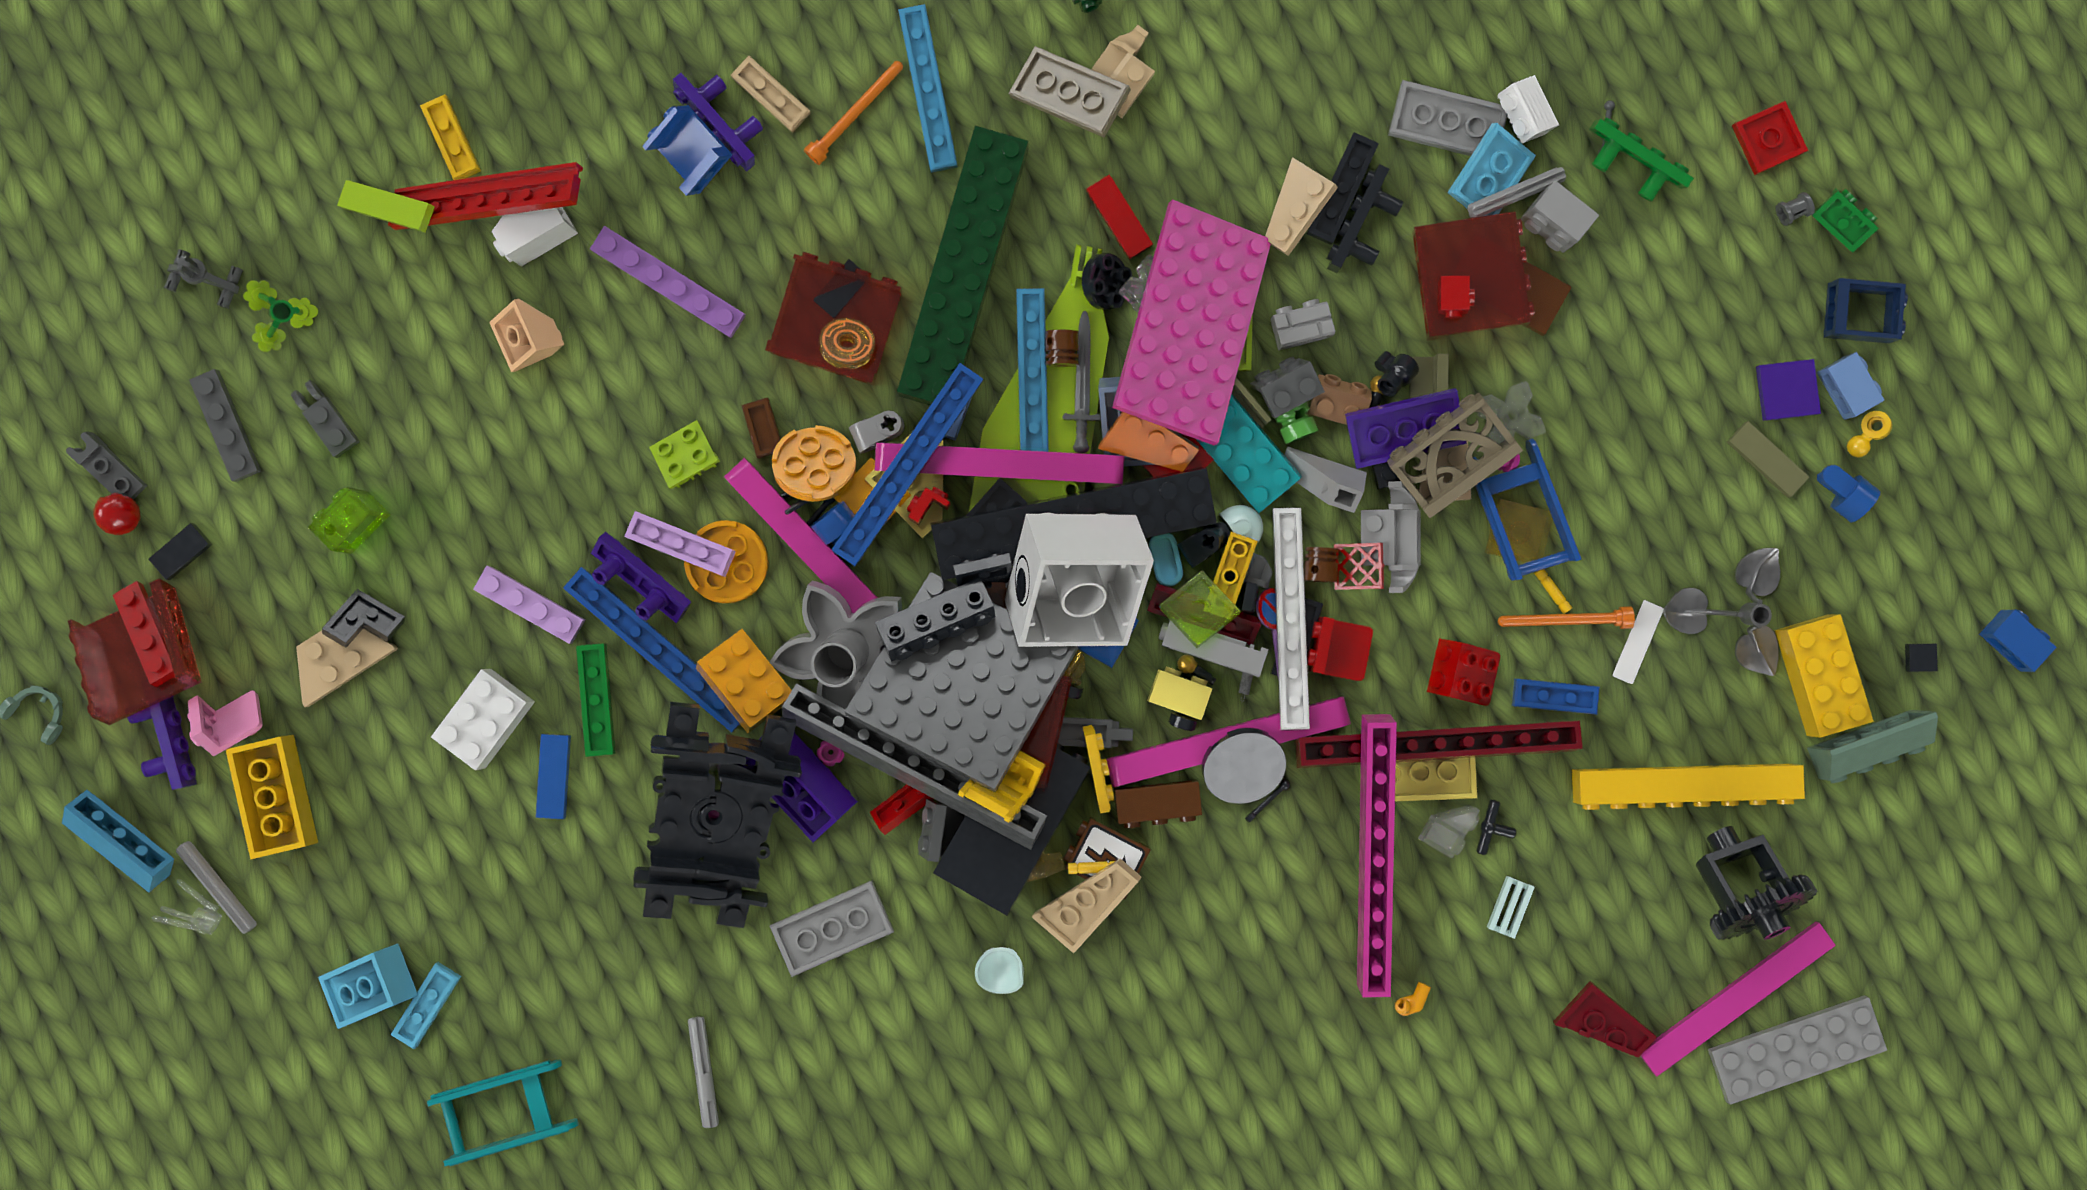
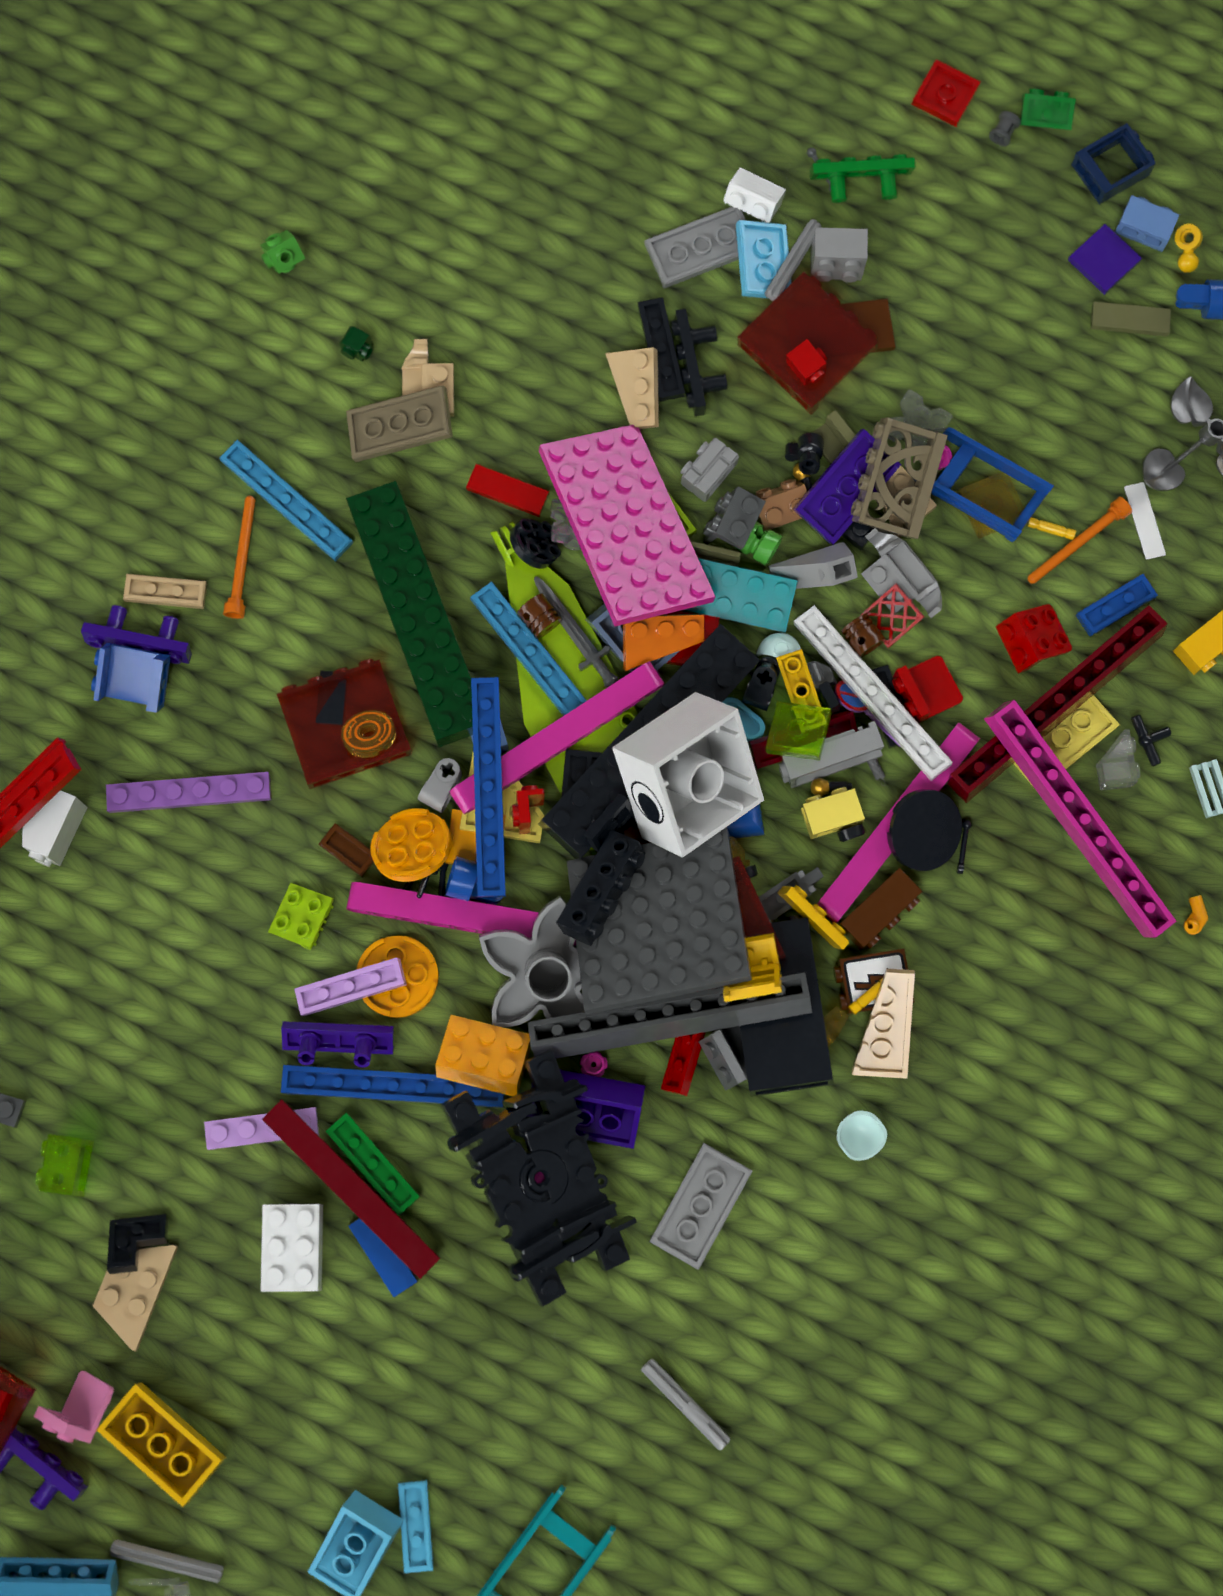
camera: 35 degrees left, 10 degrees down
(525, 335) = (103, 914): light nougat slope -> none
(562, 707) = (351, 1188): none -> dark red tile

